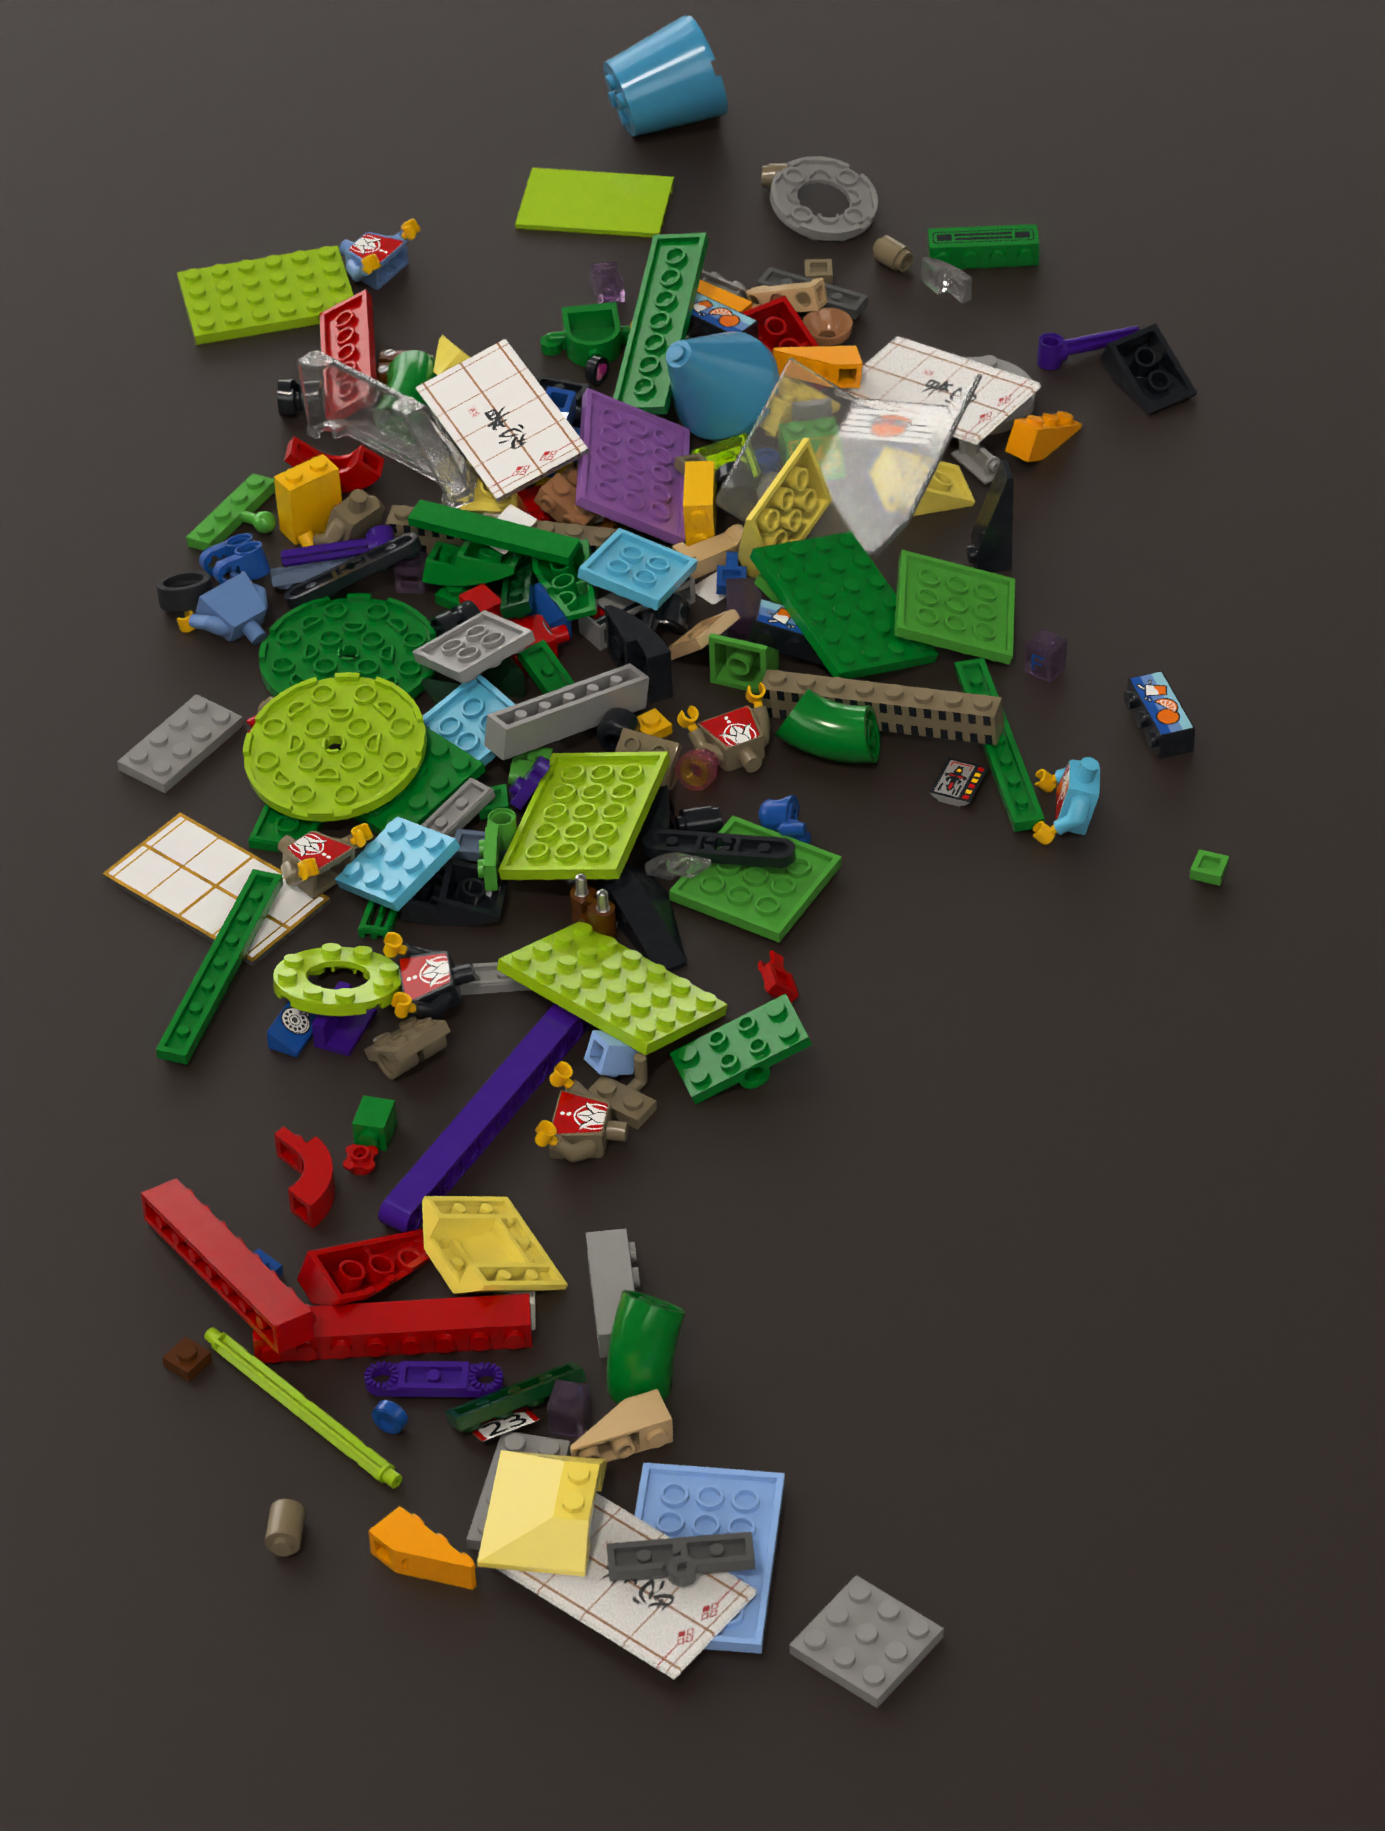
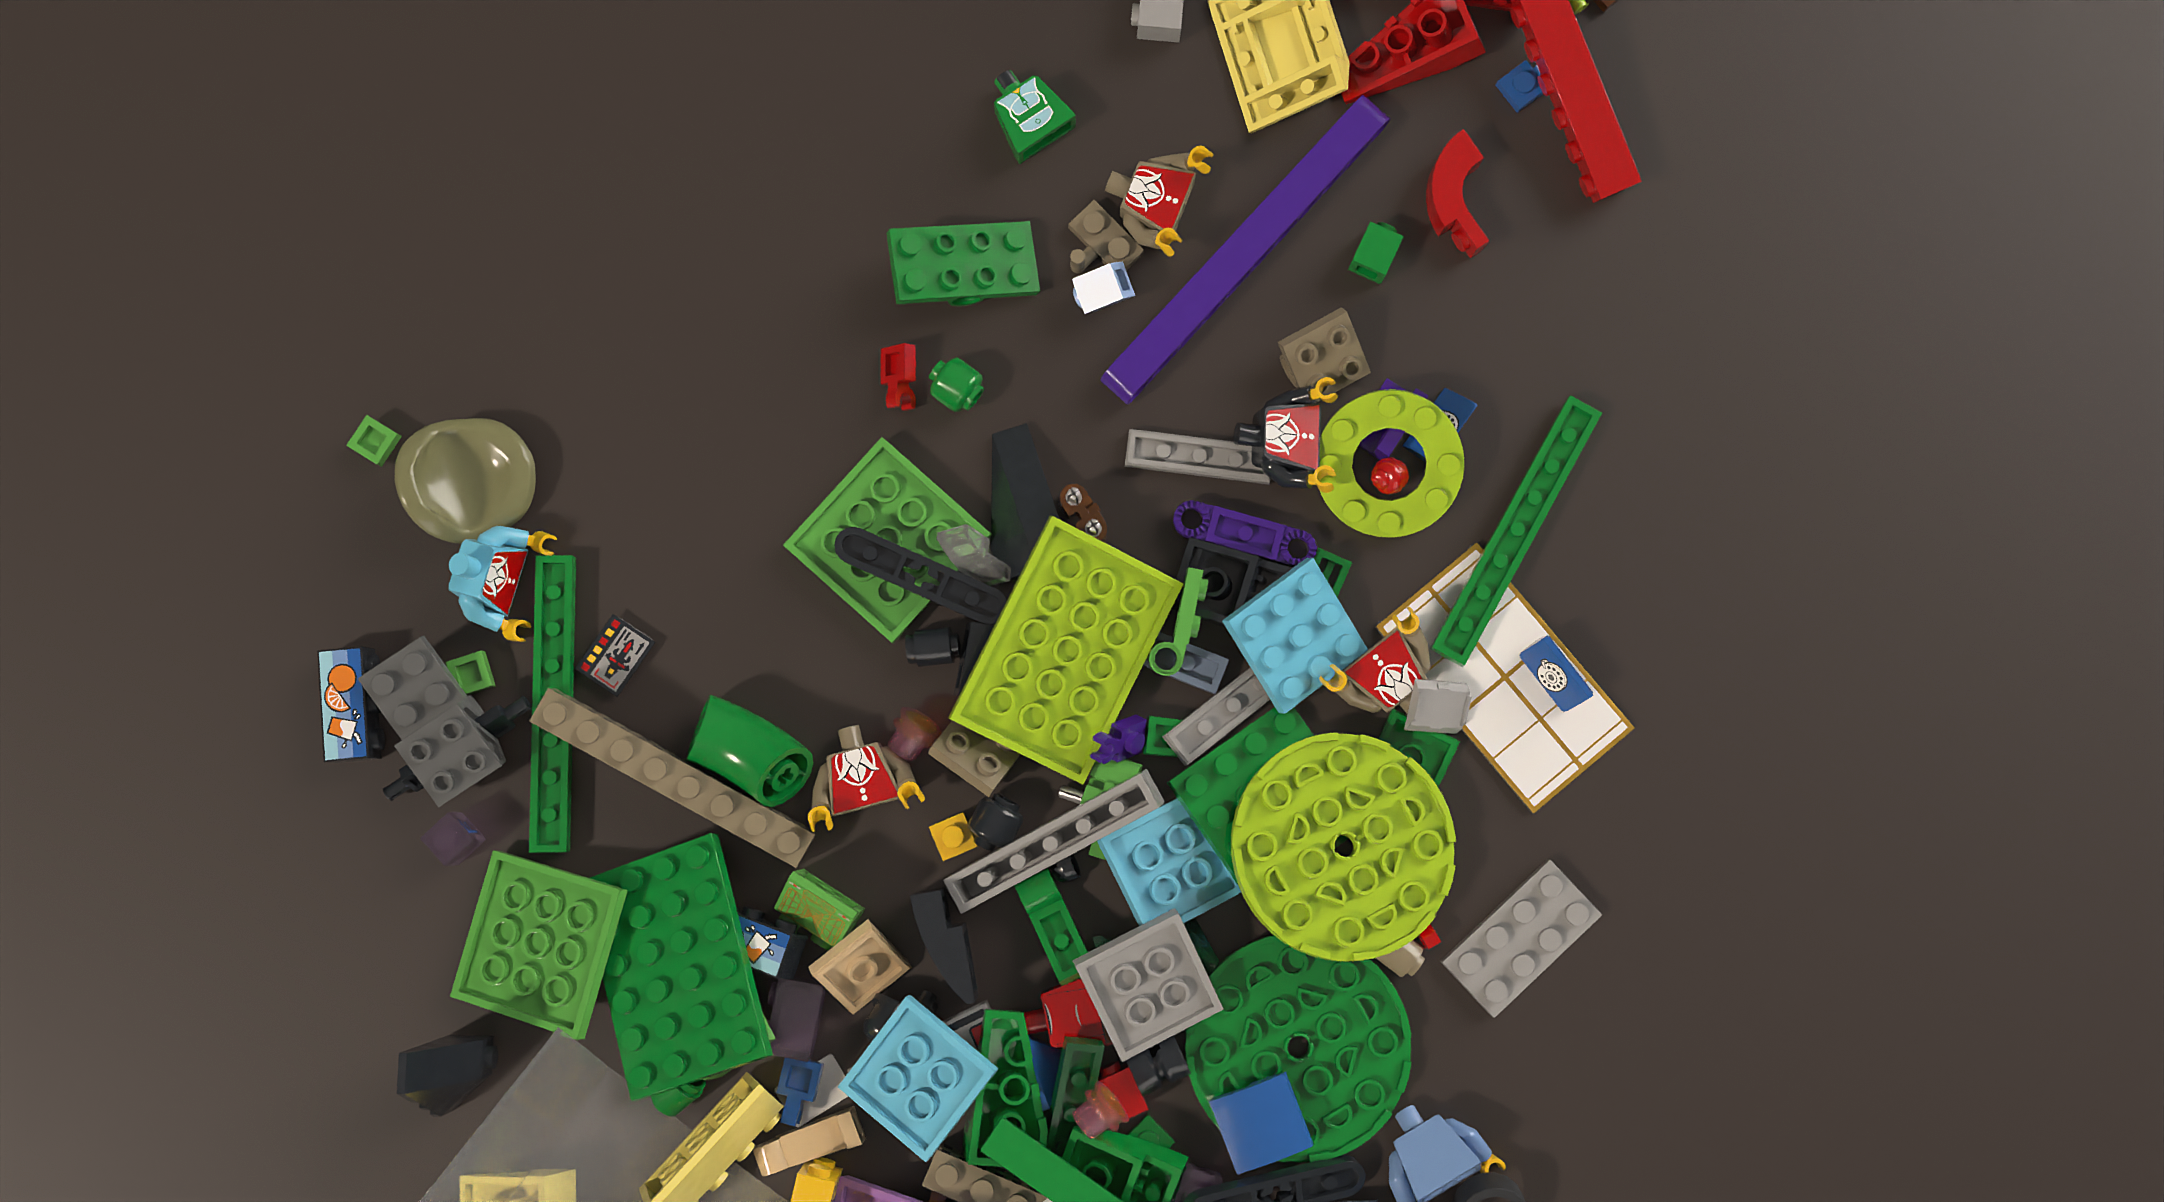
camera: 170 degrees left, 40 degrees up
(172, 887) = (1555, 673): none -> blue slope
(270, 845) = (1438, 706): none -> light grey piece
(337, 971) = (1389, 475): none -> red plate
(360, 1159) = (1405, 207): red plate -> none
(370, 599) = (1261, 1123): none -> blue slope
(455, 930) = (1244, 533): none -> dark purple plate
(498, 581) = (1100, 1111): none -> clear pink piece
(612, 987) = (1086, 384): lime plate -> none
(709, 1165) = (1030, 114): none -> green torso
(724, 975) = (956, 384): none -> green head
(782, 817) = (837, 630): blue piece -> none
(1071, 747) = (472, 672): none -> bright green plate
(1076, 701) = (440, 728): none -> dark grey piece
(1122, 846) = (464, 478): none -> olive piece

